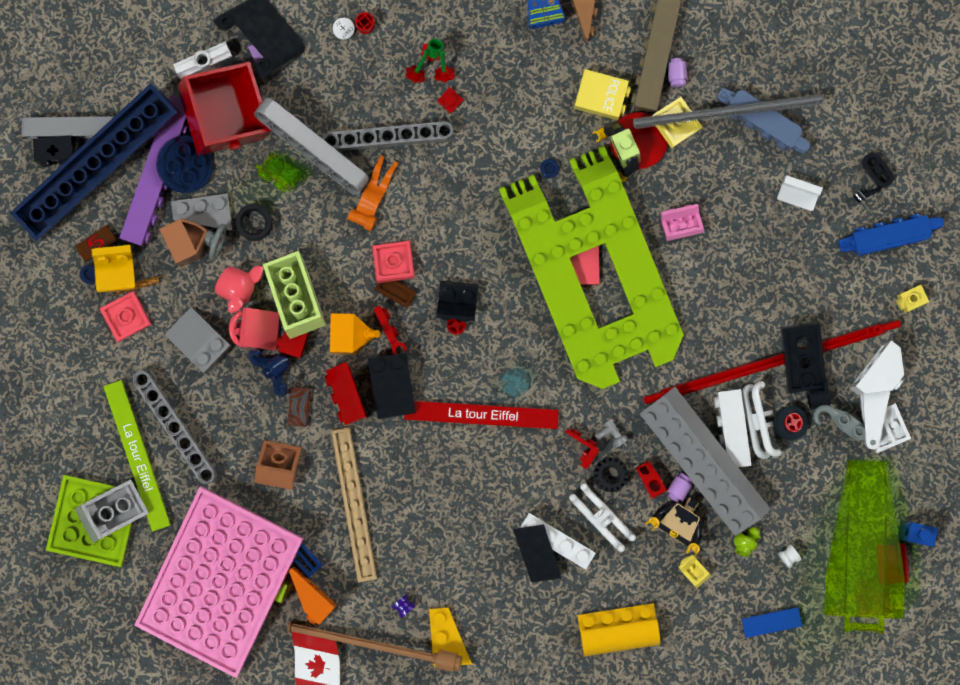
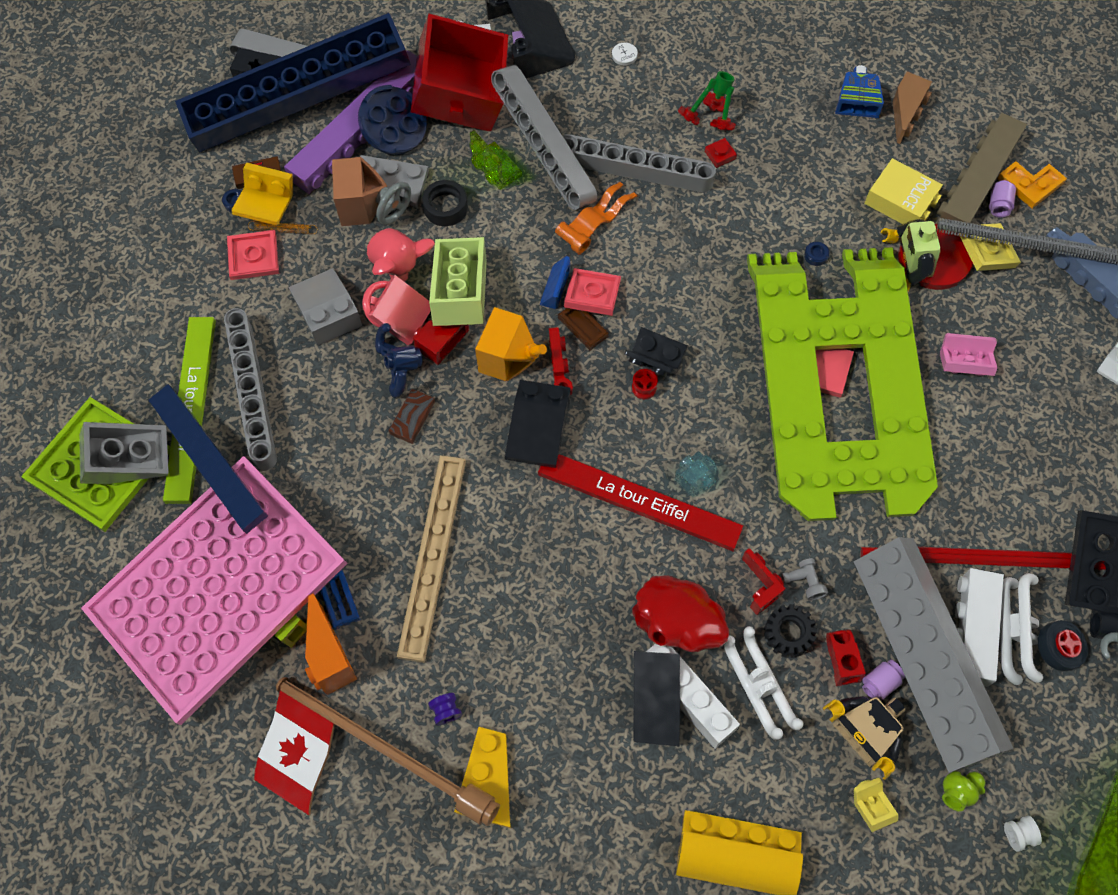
camera: 20 degrees right, 20 degrees down
(172, 495) = (208, 459): none -> dark blue tile
(277, 465) = (354, 473): nougat slope -> none
(345, 394) = (476, 415): red slope -> none
(363, 265) = (556, 283): none -> blue slope
(366, 26) = (651, 51): red wheel -> none
(535, 492) = (680, 615): none -> red piece
(699, 53) = (1033, 188): none -> light orange plate

